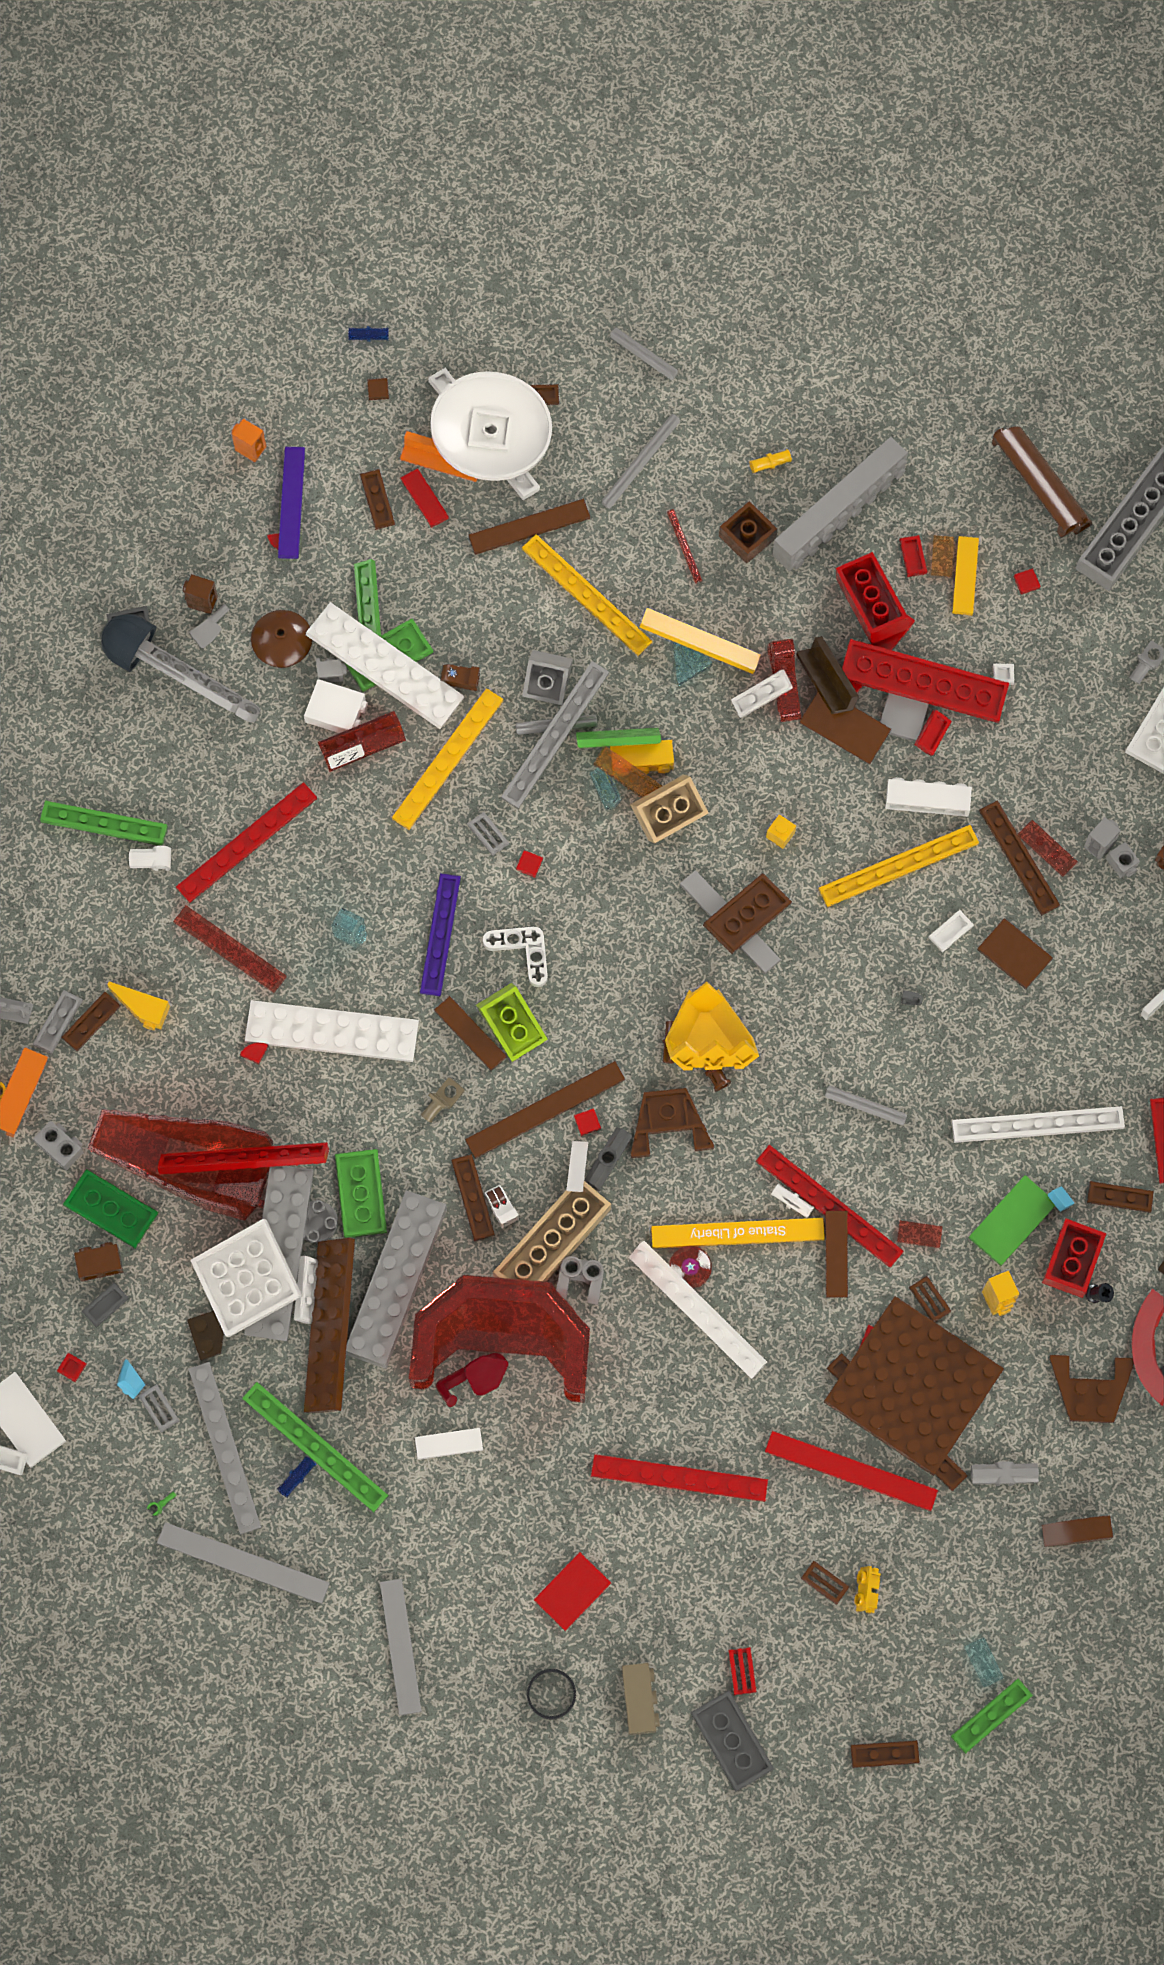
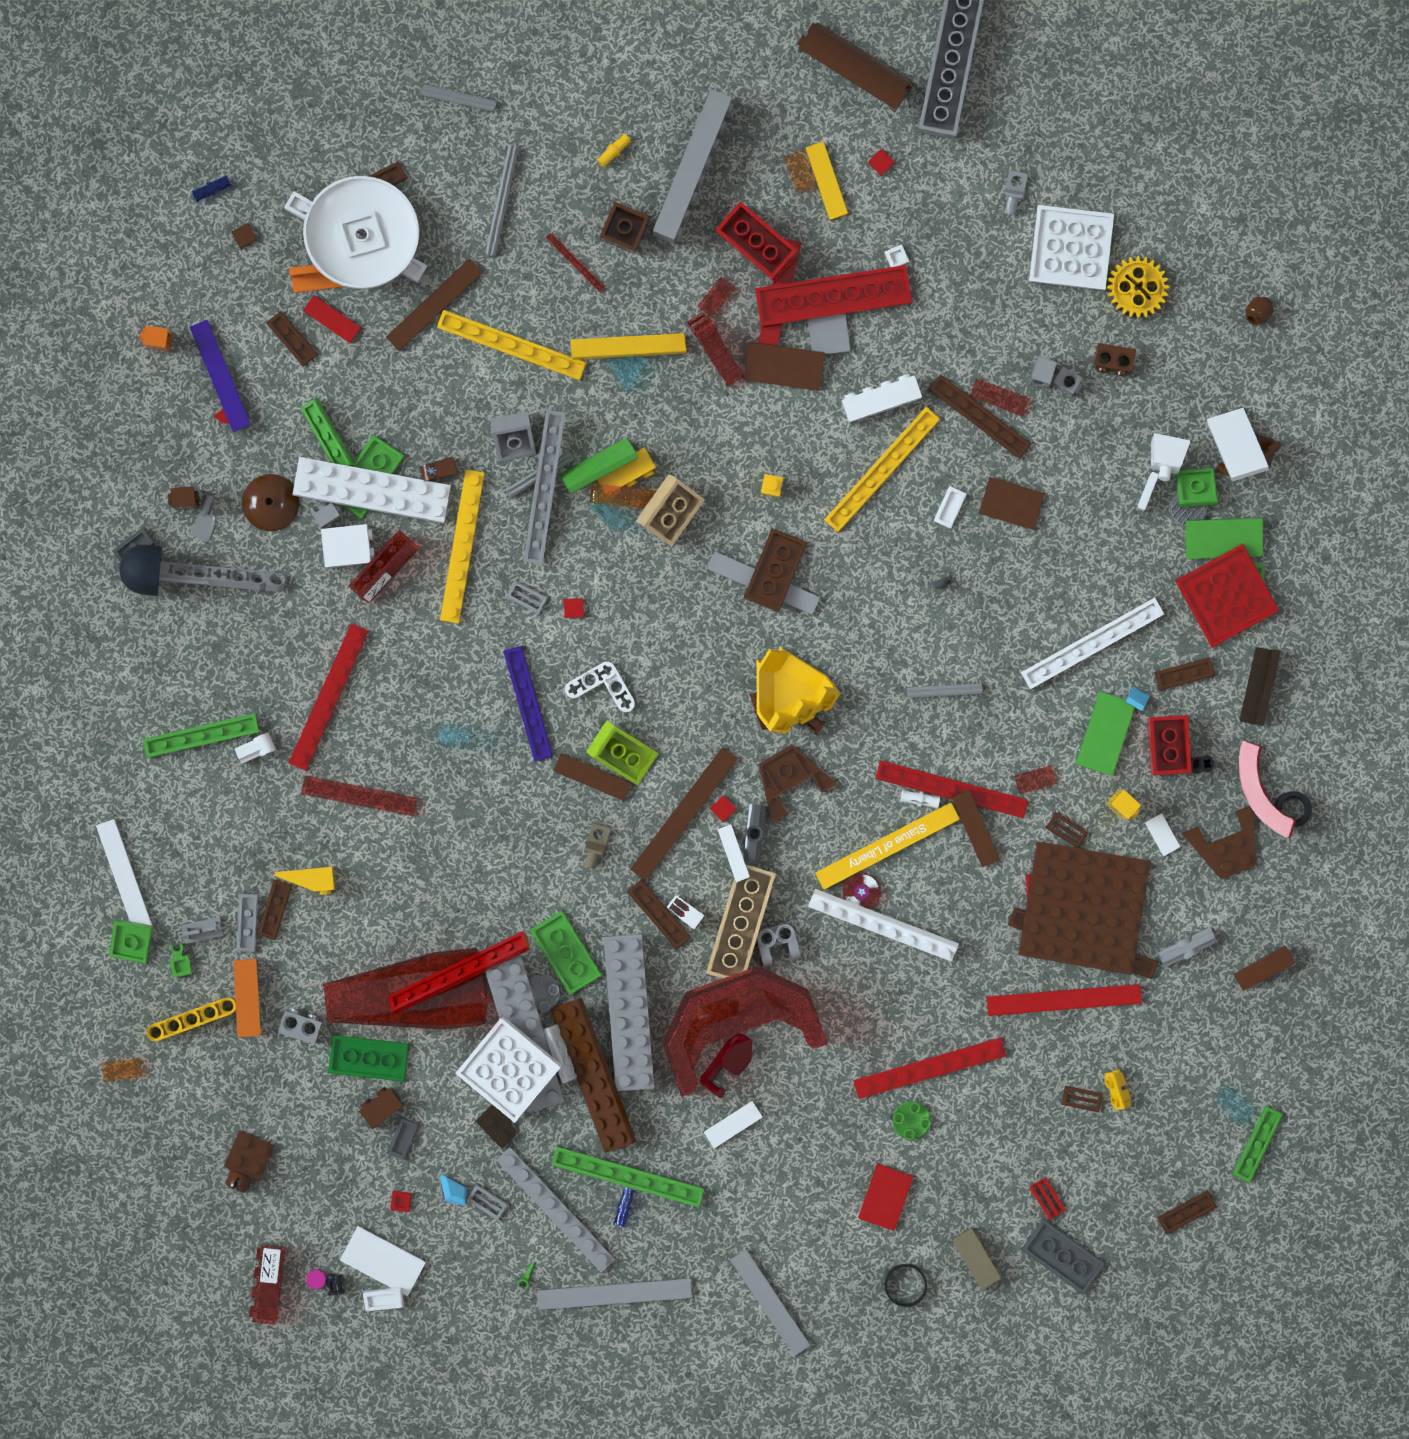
camera: 25 degrees left, 15 degrees up
(254, 1052) = (422, 874): red tile -> none
(332, 1031) = (477, 827): white plate -> none
(636, 1523) = (911, 1120): none -> bright green dish
(761, 693) = (702, 371): white tile -> none
(805, 635) = (716, 297): none -> clear red tile
(828, 677) = (750, 331): dark brown panel -> none
(913, 556) = (774, 183): red tile -> none
(932, 732) = (860, 338): red tile -> none
(1028, 1348) = (1162, 834): none -> white tile

